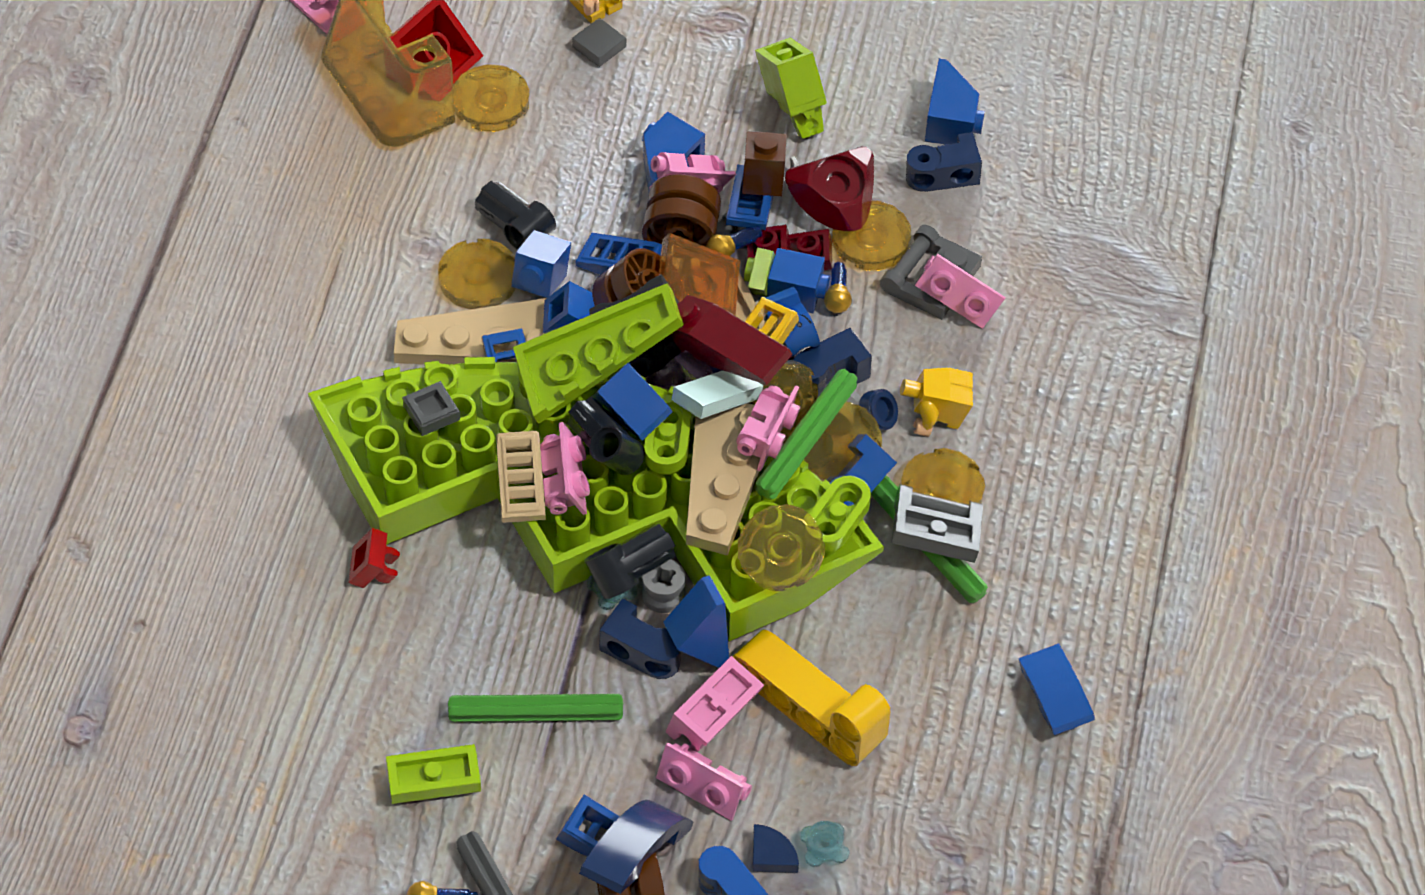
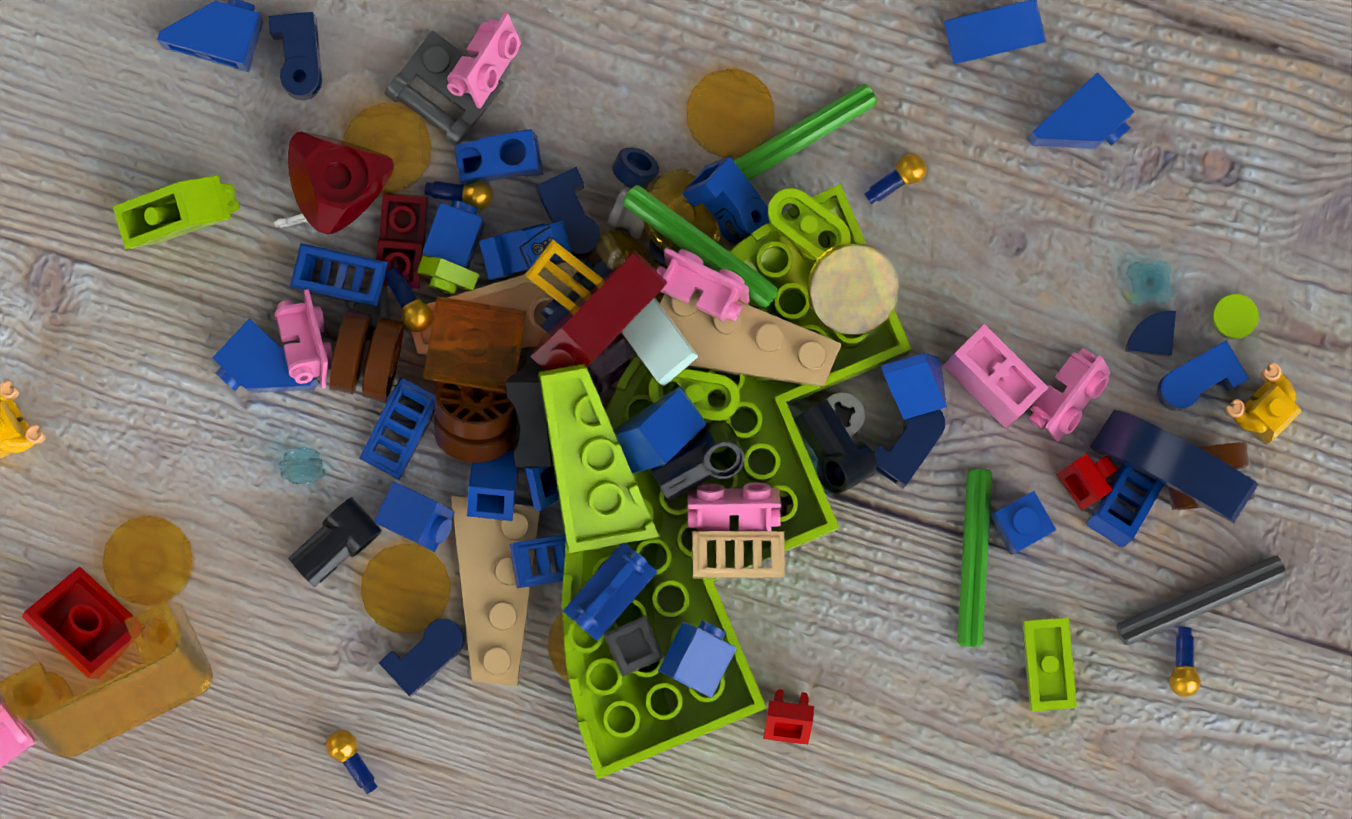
camera: 90 degrees left, 30 degrees up
(333, 237) = (343, 748): none -> piece
(414, 284) = (438, 647): none -> dark blue leg
(421, 445) = (698, 657): none -> brick
(479, 384) = (610, 591): none -> blue hinge
(571, 737) = (1022, 523): none -> blue brick
(580, 189) = (301, 465): none -> clear light blue plate
(599, 42) = (72, 429): dark grey tile -> none
(620, 791) = (1086, 479): none -> red tile
(764, 163) = (315, 255): reddish brown brick -> none
(839, 721) = (990, 277): yellow beam -> none
(875, 312) = (499, 157): none -> blue leg
(907, 628) = (909, 170): none -> piece
(937, 524) = (811, 126): dark grey plate -> none
(939, 396) = (627, 102): yellow piece -> none
(983, 769) = (1085, 119): none -> blue slope

